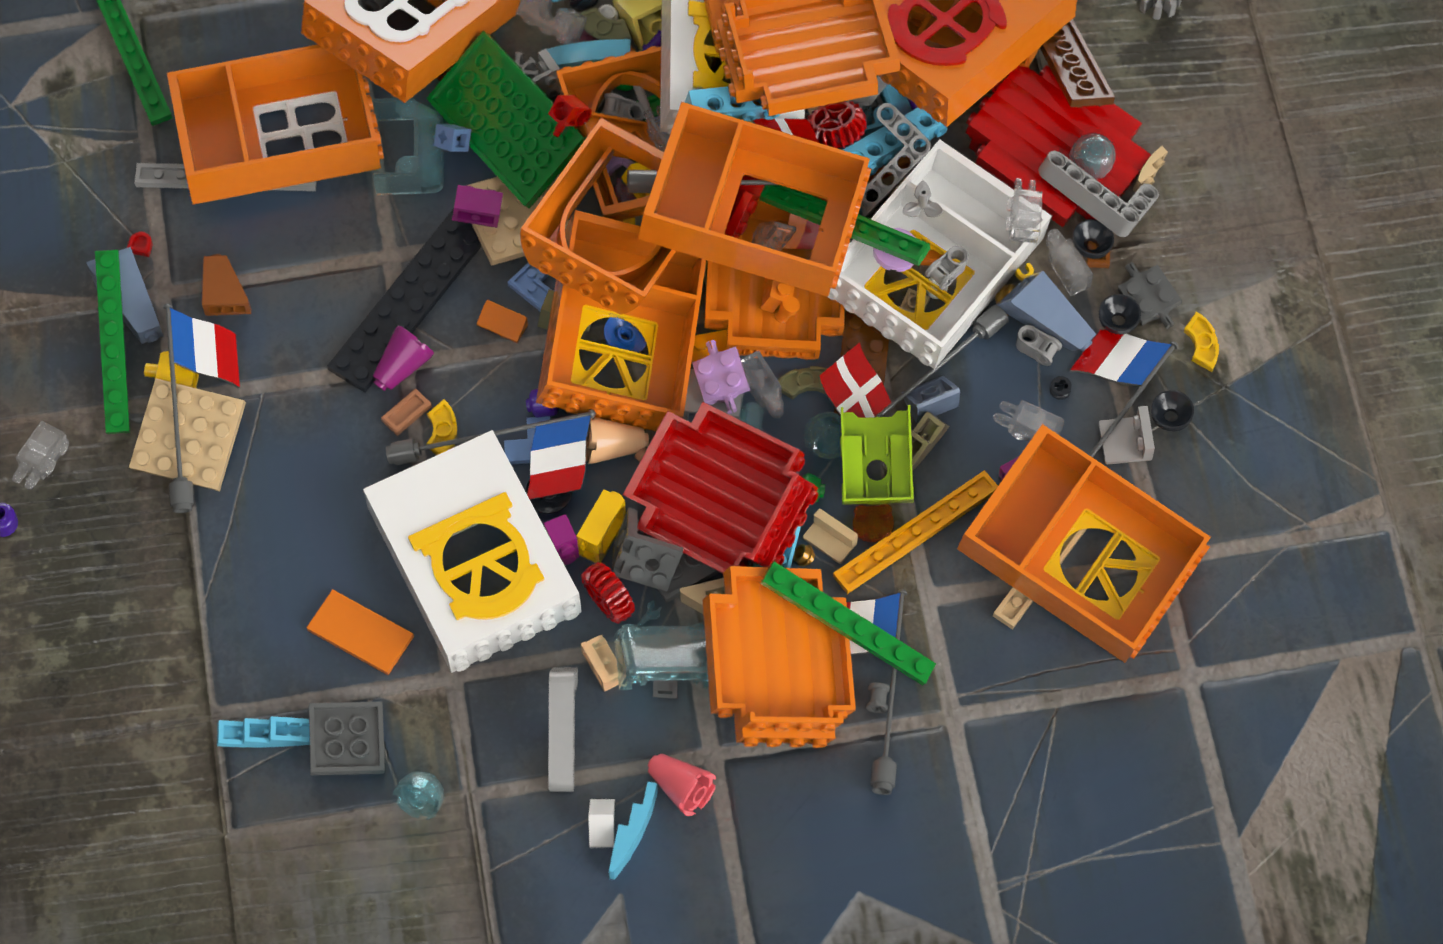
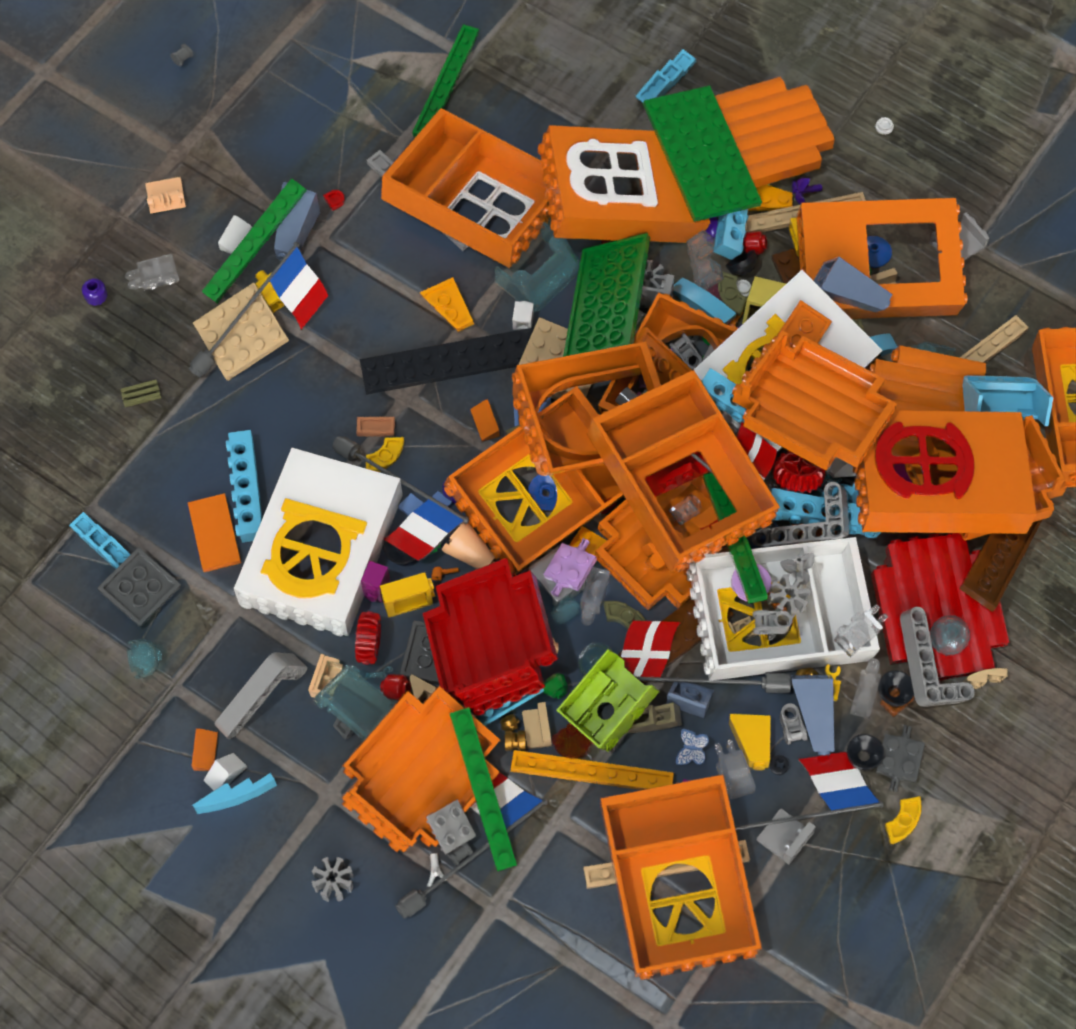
camera: 45 degrees right, 0 degrees up
(80, 356) = (233, 234): none -> white slope
(167, 560) = (140, 390): none -> olive tile
(221, 288) = (349, 262): dark orange slope -> none
(302, 527) = (238, 442): none -> medium azure brick
(356, 247) = (449, 304): none -> light orange wing
(400, 359) = (402, 391): magenta cone -> none
(437, 200) = (523, 315): none -> white brick
(447, 135) = (565, 282): medium blue brick -> none
(477, 206) = (534, 336): magenta brick -> none
(562, 820) = (204, 749): none -> orange slope
(569, 112) = (634, 322): red piece -> none
(604, 484) = (438, 571): none -> orange hand
(633, 550) = (404, 628): dark grey bracket -> none
(674, 612) = (395, 686): none -> red head
(682, 782) = (290, 793): coral cone -> none
(785, 818) = (325, 881): none -> light grey gear
(826, 562) = (510, 743): none -> pearl gold wheel
(853, 679) = (450, 826): none -> light grey hinge
(871, 730) = (435, 869): none -> white bar
(939, 233) = (784, 588): none -> light grey gear
(979, 436) = (692, 748): none -> medium blue animal
(1018, 381) = (753, 737): none -> yellow slope
(1175, 402) = (837, 836): black piece -> none

